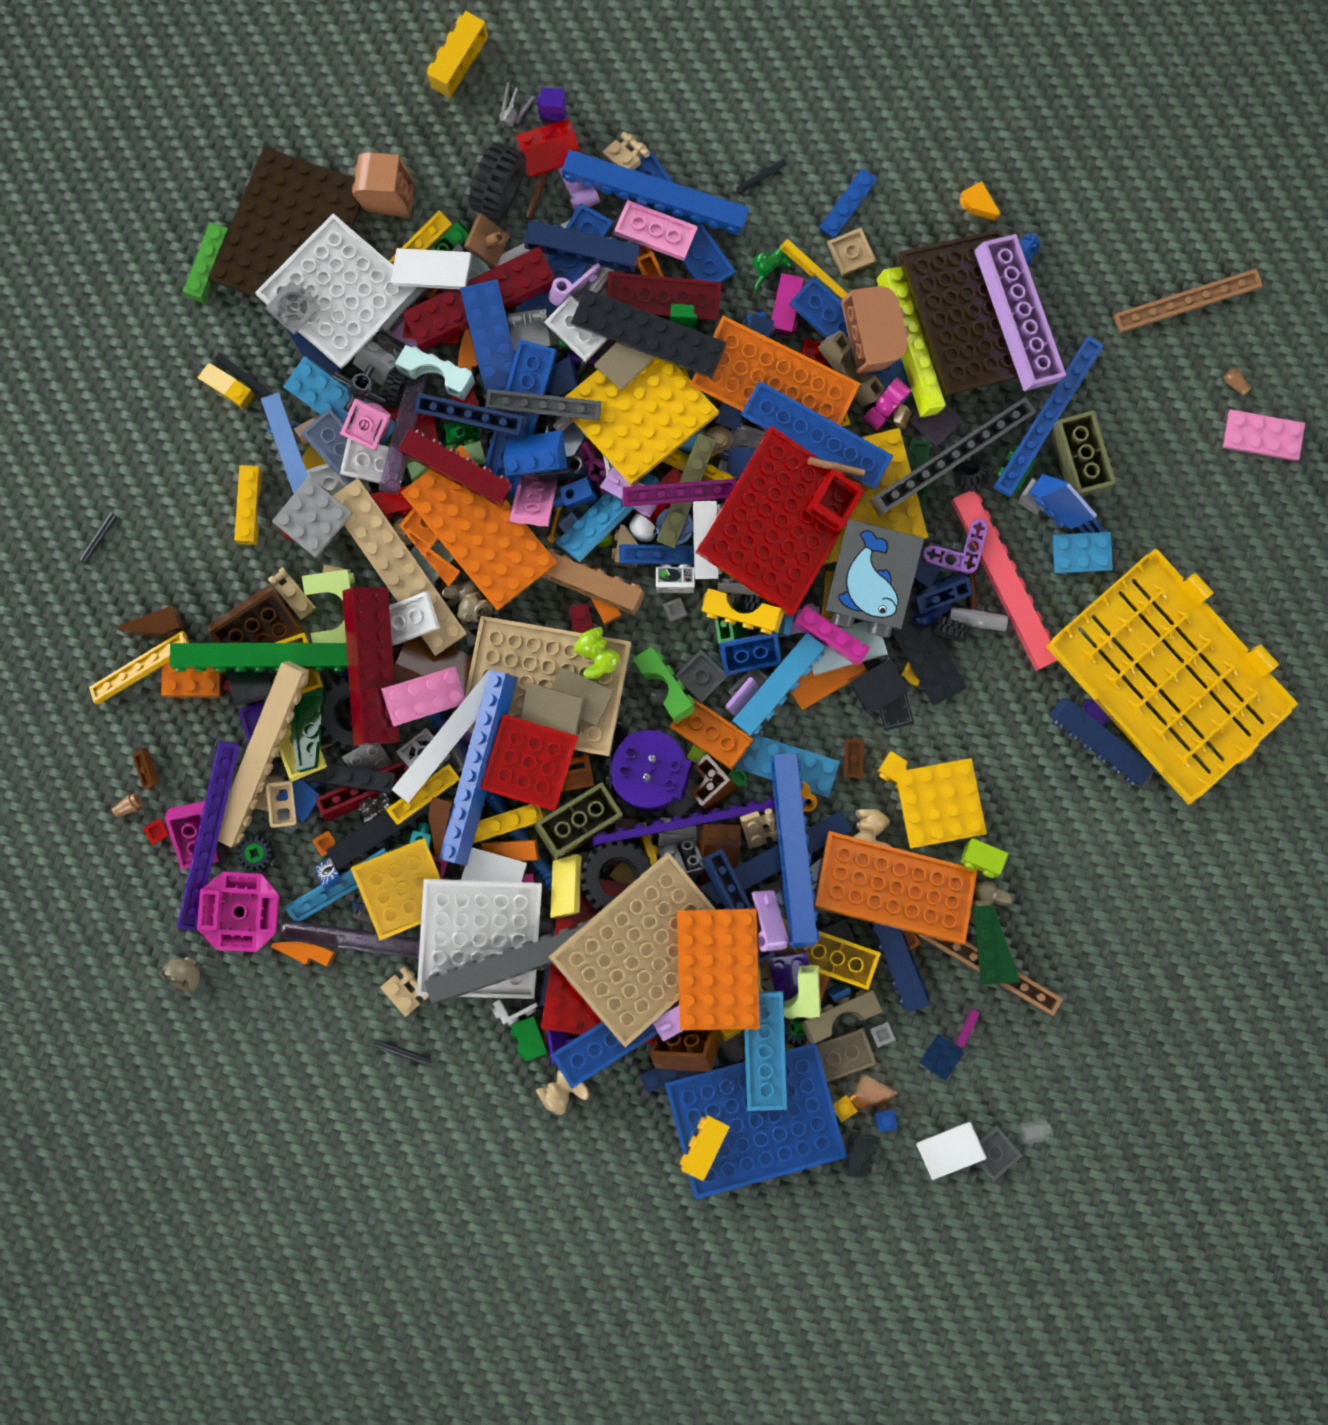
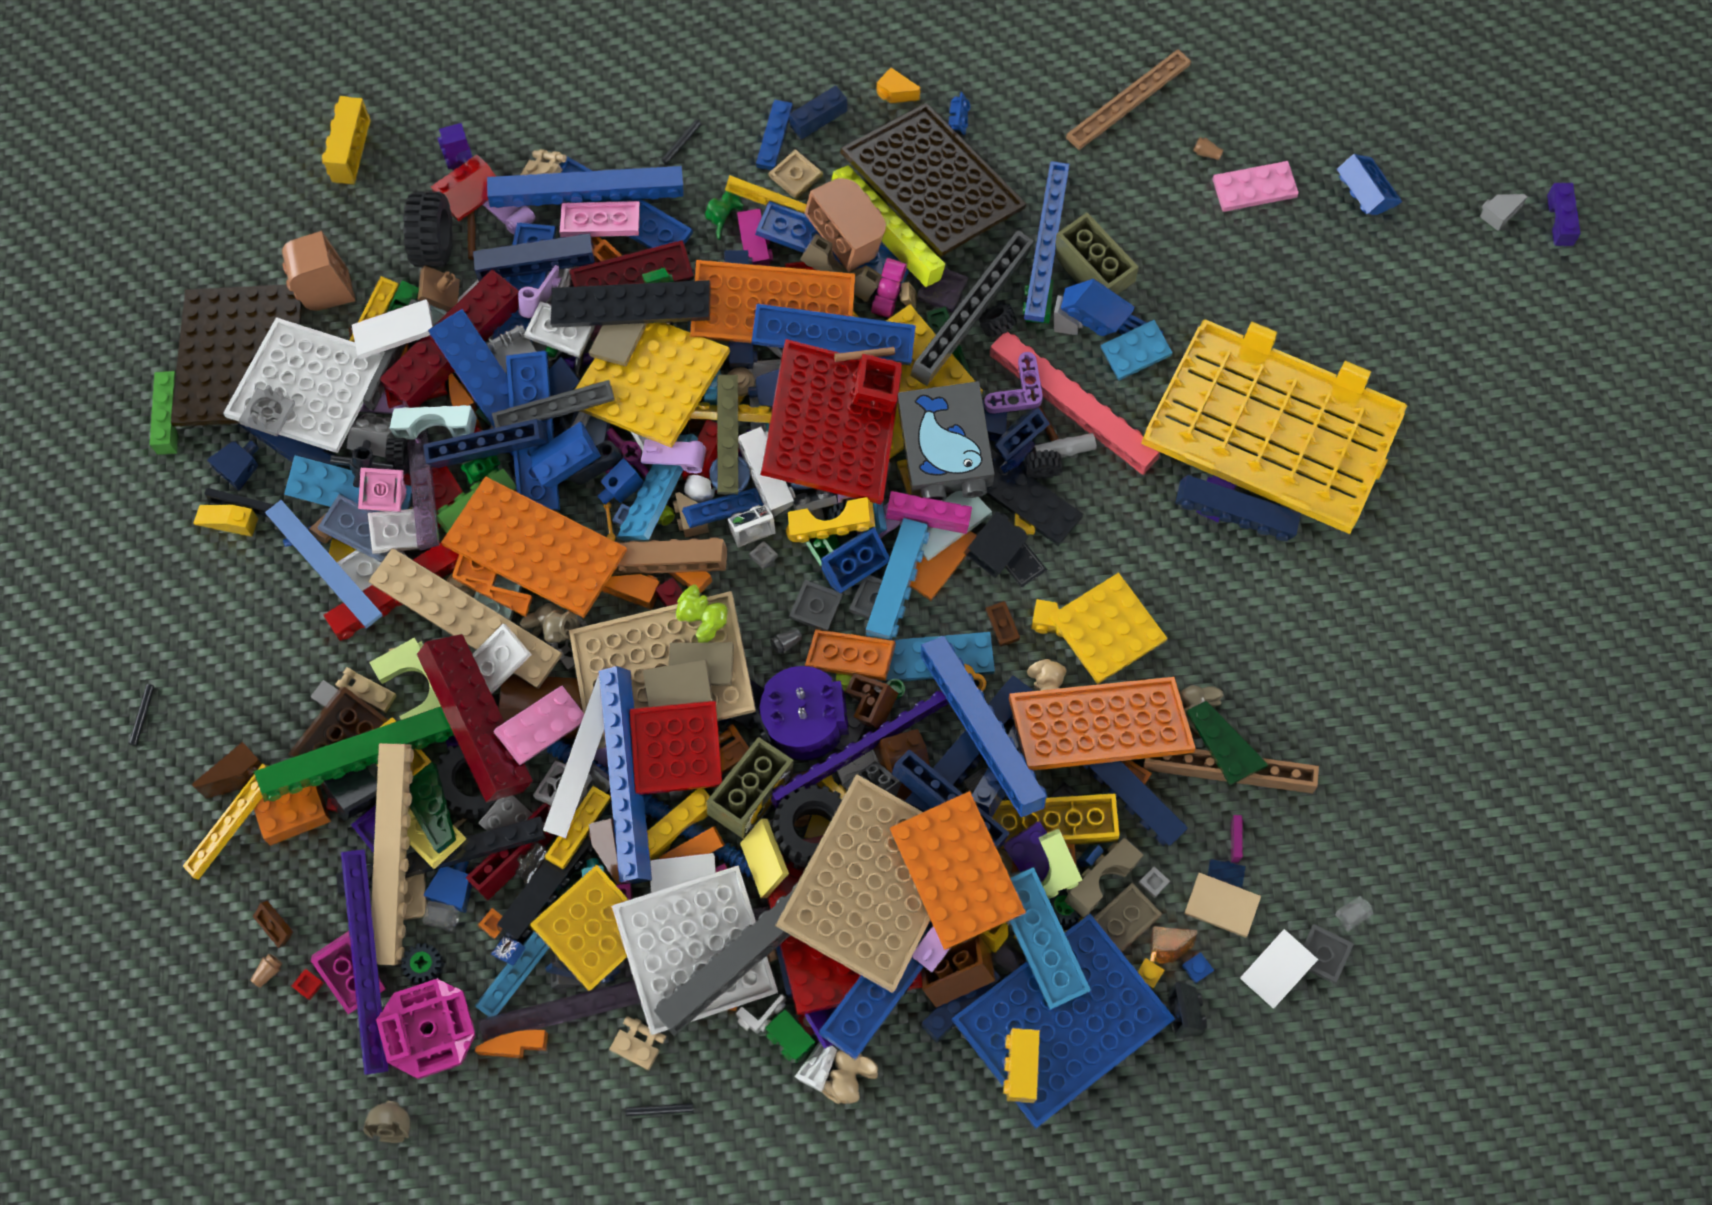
camera: 20 degrees left, 15 degrees down
(247, 500) = (288, 622): yellow arch -> none
(252, 336) = (235, 463): none -> dark blue torso
(256, 582) = (323, 693): none -> light grey tile
(274, 806) = (426, 902): tan piece -> none
(312, 517) = (359, 602): light grey plate -> none
(455, 468) = (487, 495): dark red brick -> none
(509, 116) = (418, 177): light grey plant -> none
(533, 501) = (579, 501): bright pink plate -> none
(539, 1074) = (817, 1067): none -> white wing
(553, 597) = (634, 588): none -> orange slope
(651, 667) = (763, 614): bright green arch -> none
(677, 492) = (717, 436): magenta tile -> none
(742, 696) = (865, 605): lavender slope -> none
(753, 828) = (932, 728): tan plate -> none
(773, 931) = (998, 809): lavender door -> none
(897, 198) = (818, 112): none -> dark blue brick
(930, 1077) = (1222, 905): none -> tan tile
(983, 858) = (1175, 661): lime slope -> none
(1020, 312) = (978, 161): lavender brick -> none

